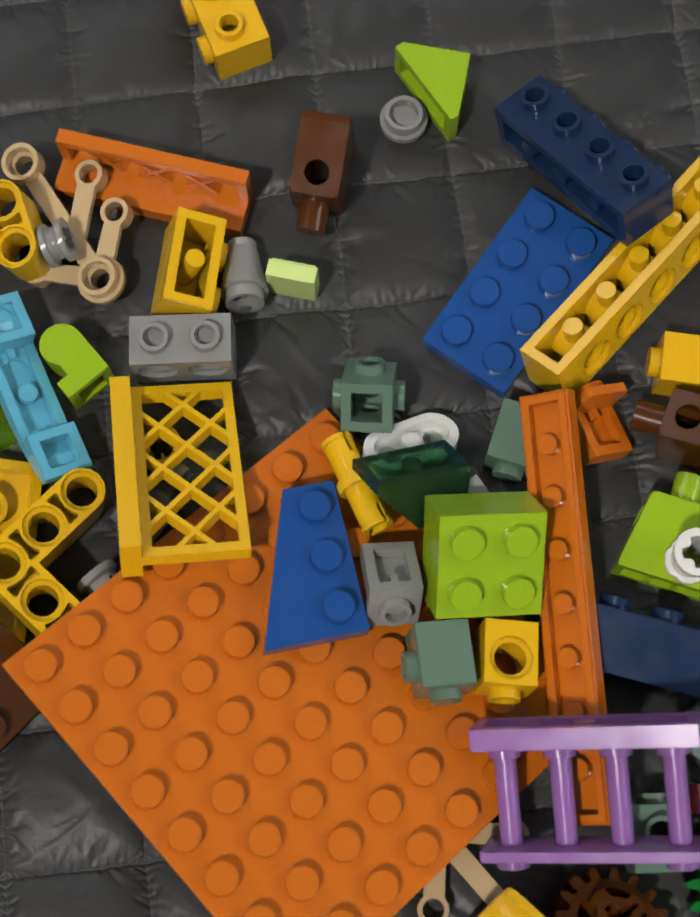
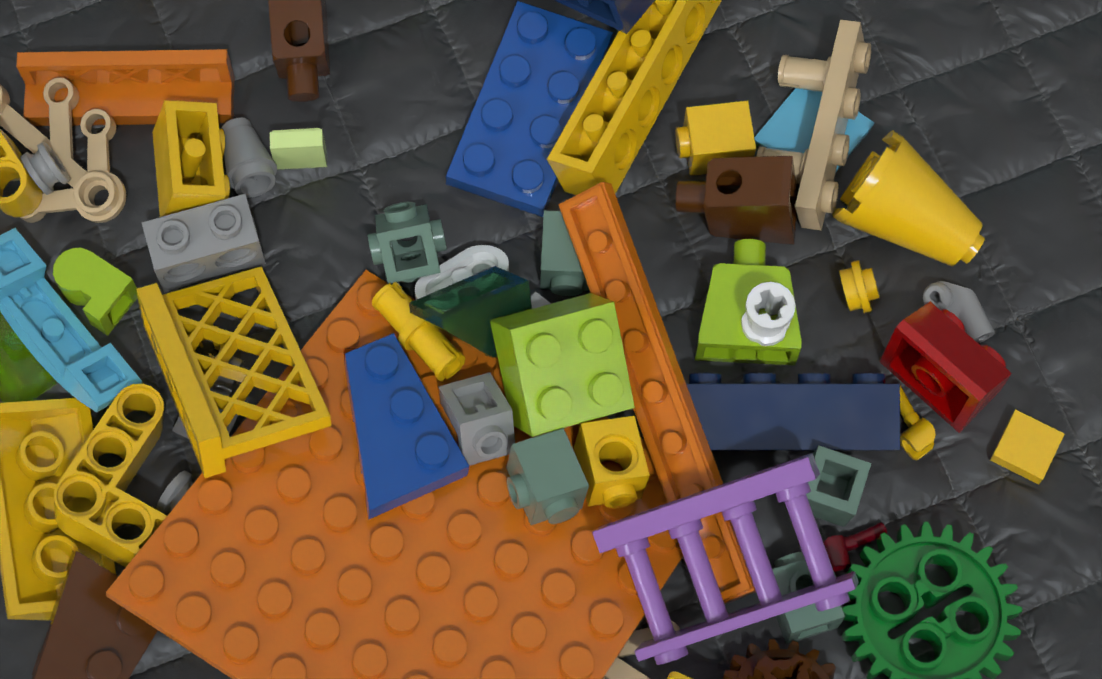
camera: 20 degrees left, 5 degrees down
(599, 427) = (647, 219): orange bracket -> none

